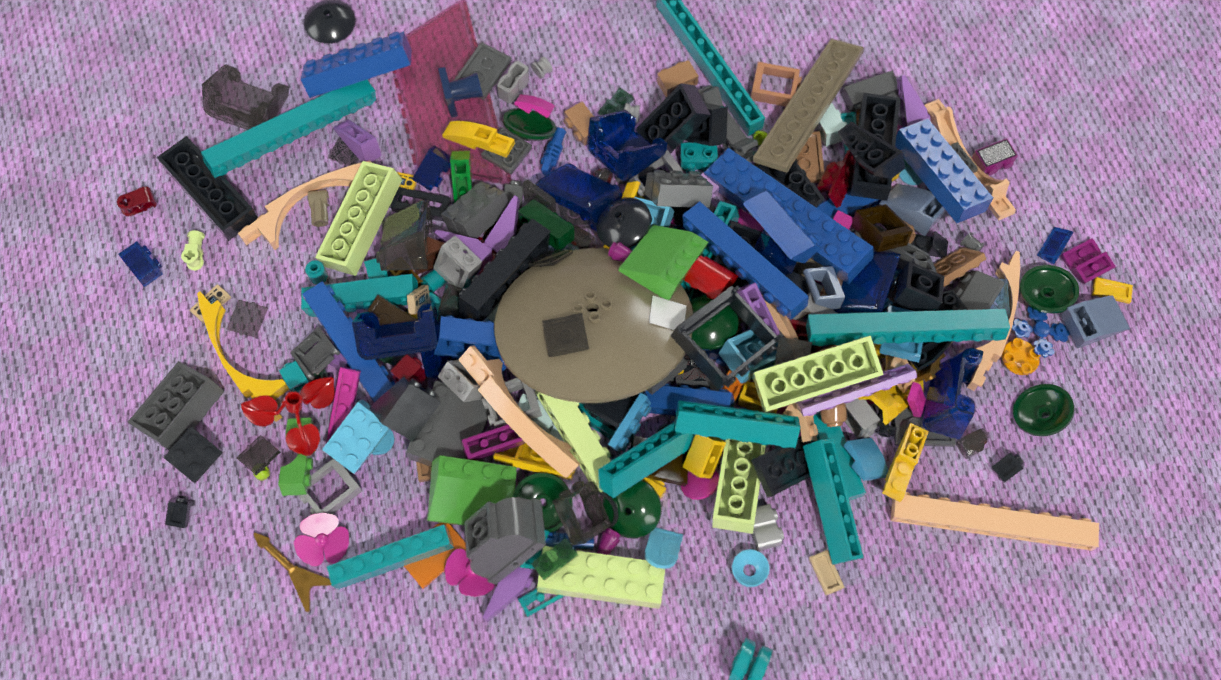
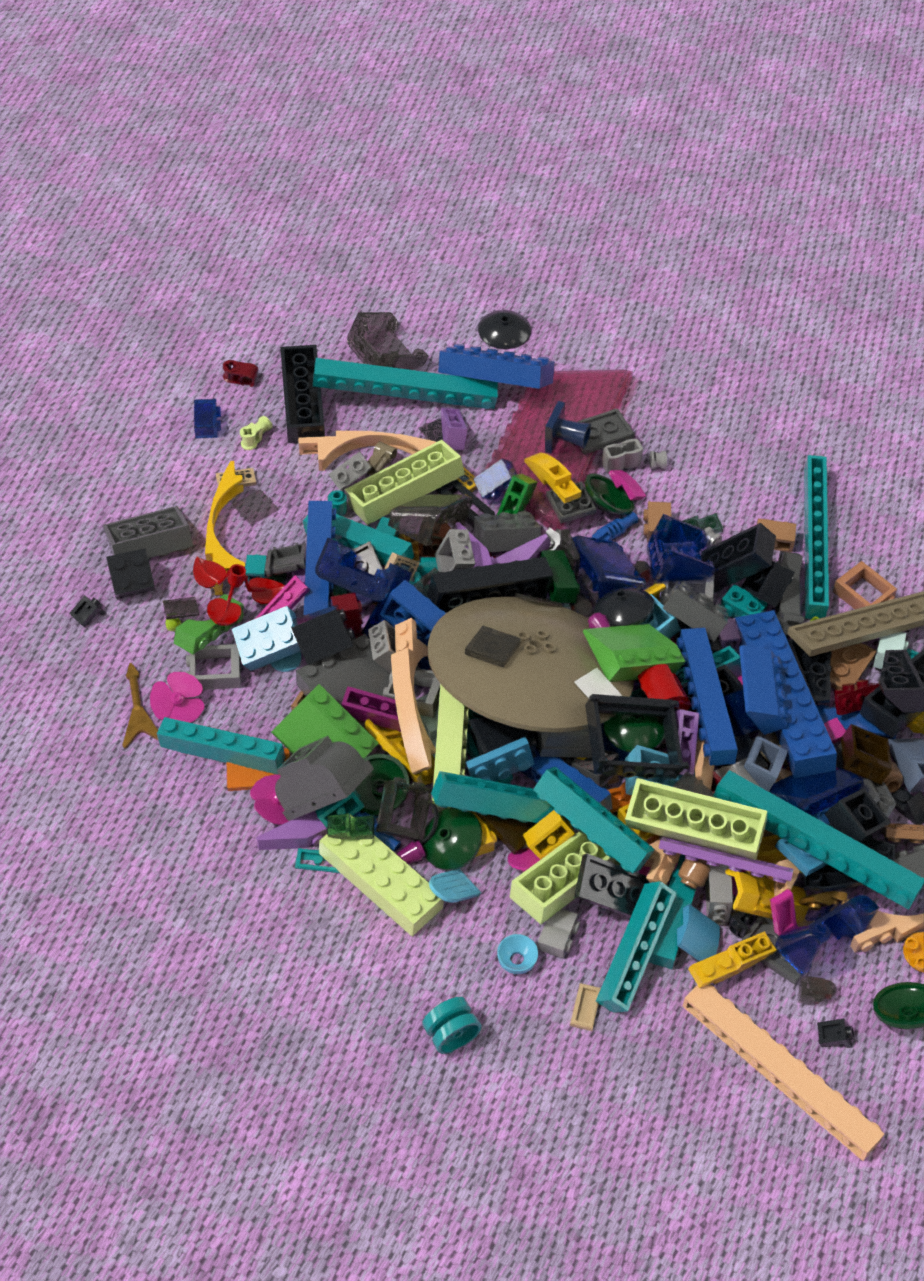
camera: 35 degrees right, 15 degrees down
(309, 245) = (357, 467): none -> light grey window

